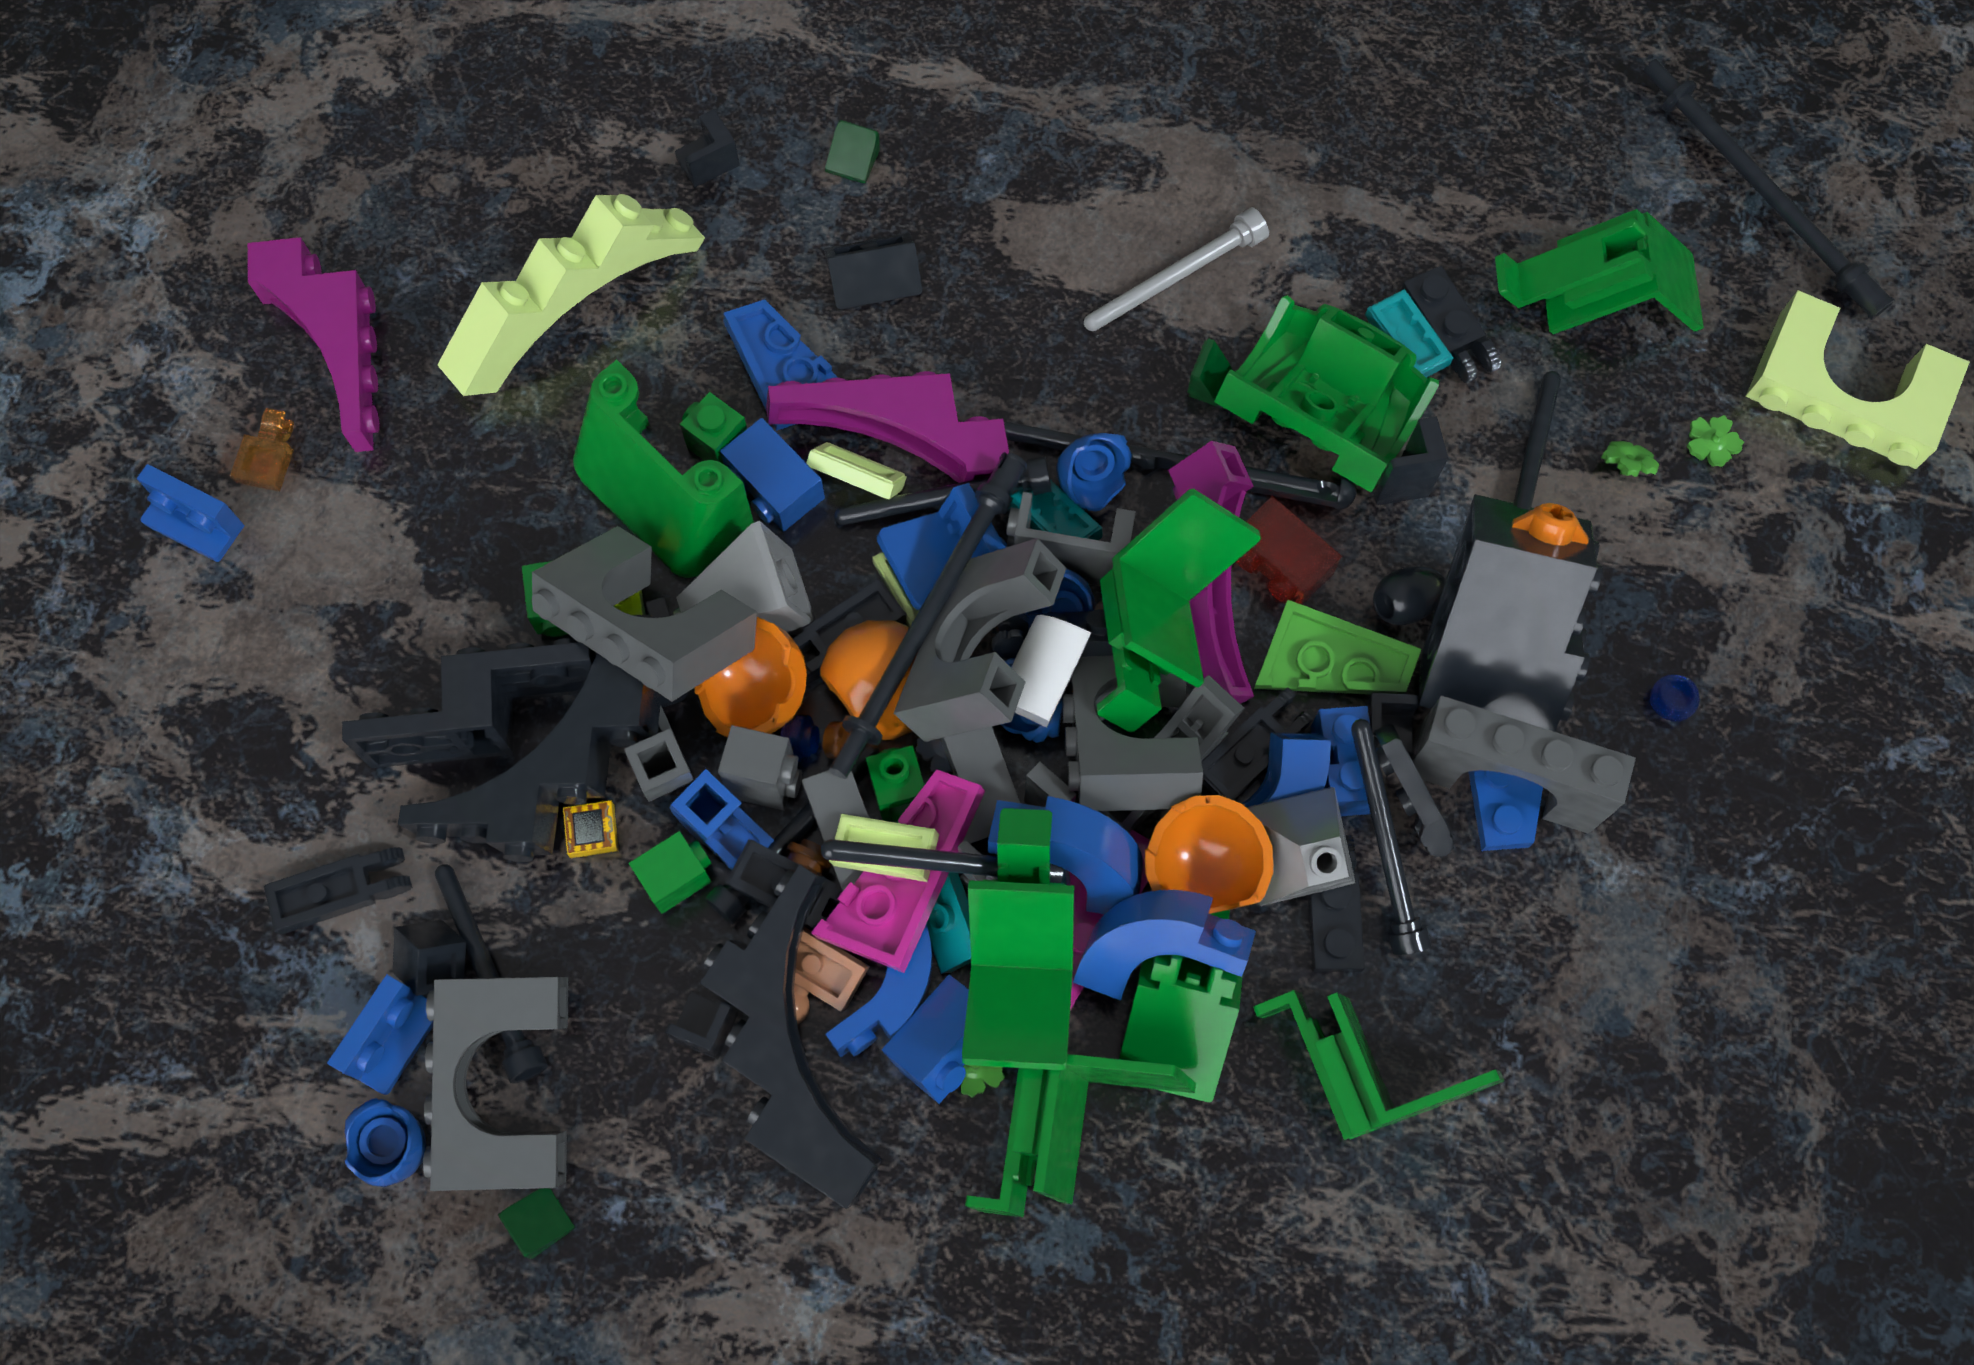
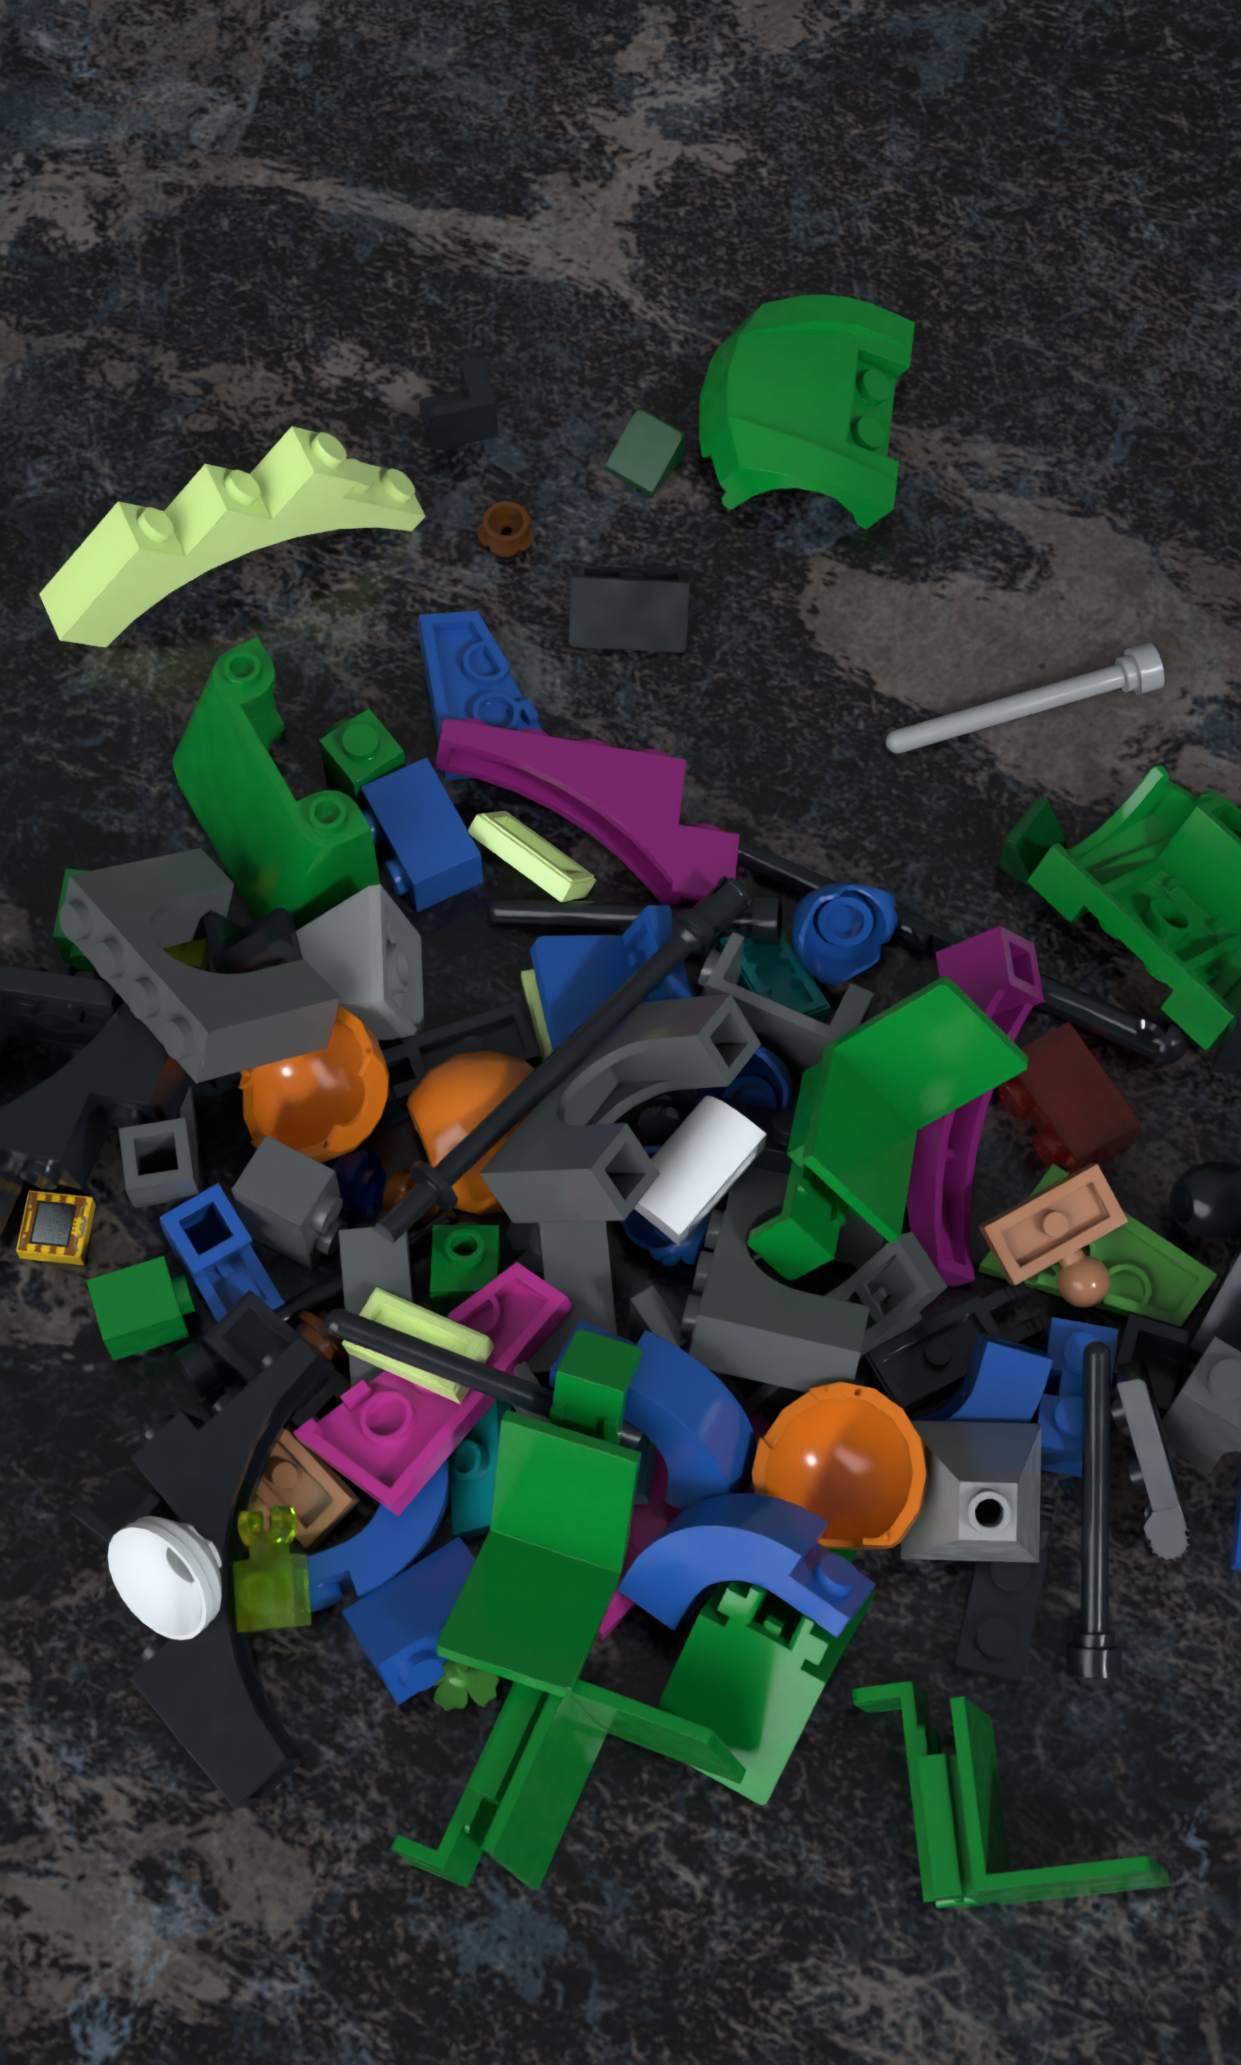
camera: 15 degrees right, 5 degrees down
(679, 589) = (256, 947): none -> black panel
(754, 1061) = (167, 1575): none -> white piece
(764, 224) = (506, 517): none -> reddish brown plate
(828, 1044) = (273, 1583): none -> clear neon green plate
(958, 87) = (807, 402): none -> green piece
(1303, 647) = (1054, 1229): none -> nougat plate

